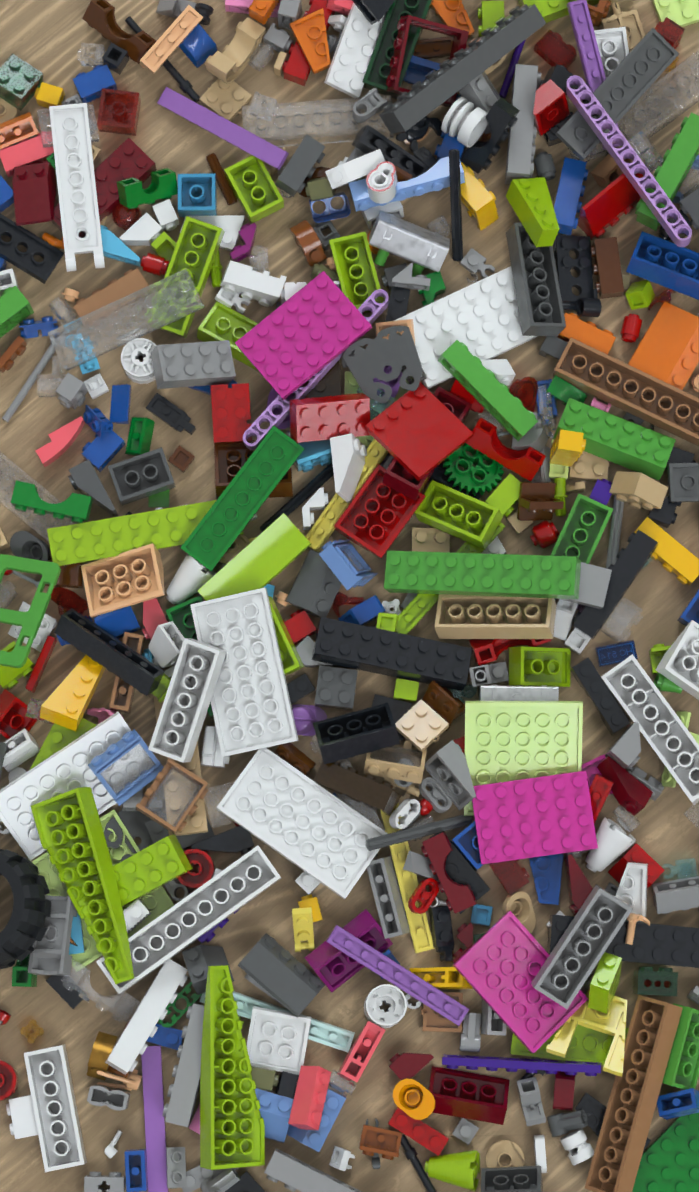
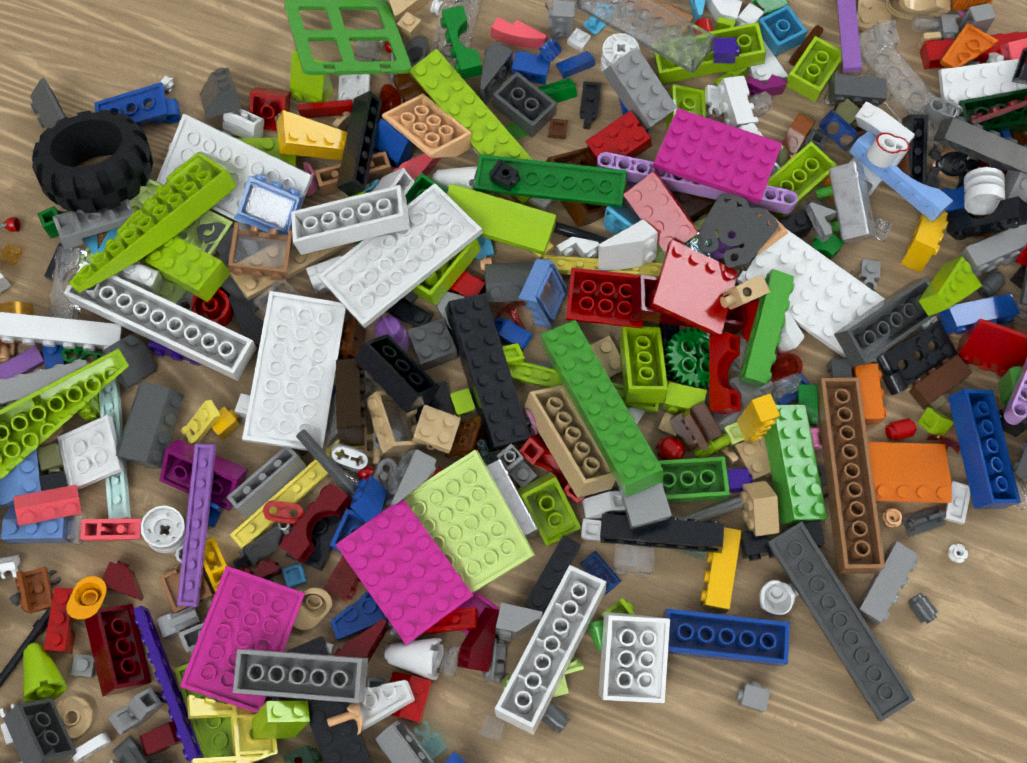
camera: 60 degrees right, 10 degrees down
(63, 654) = (343, 121): none -> tan tile
(201, 264) = (725, 50): none -> dark purple brick
(216, 544) = (505, 182): none -> black brick
(395, 604) = (533, 356): white plate -> none
(419, 865) = (308, 491): light grey slope -> none
(448, 391) = (740, 295): none -> tan torso
(455, 198) = (909, 222): black axle -> none
(455, 640) = (530, 421): none -> bright pink piece
(455, 815) = (368, 498): none -> blue brick

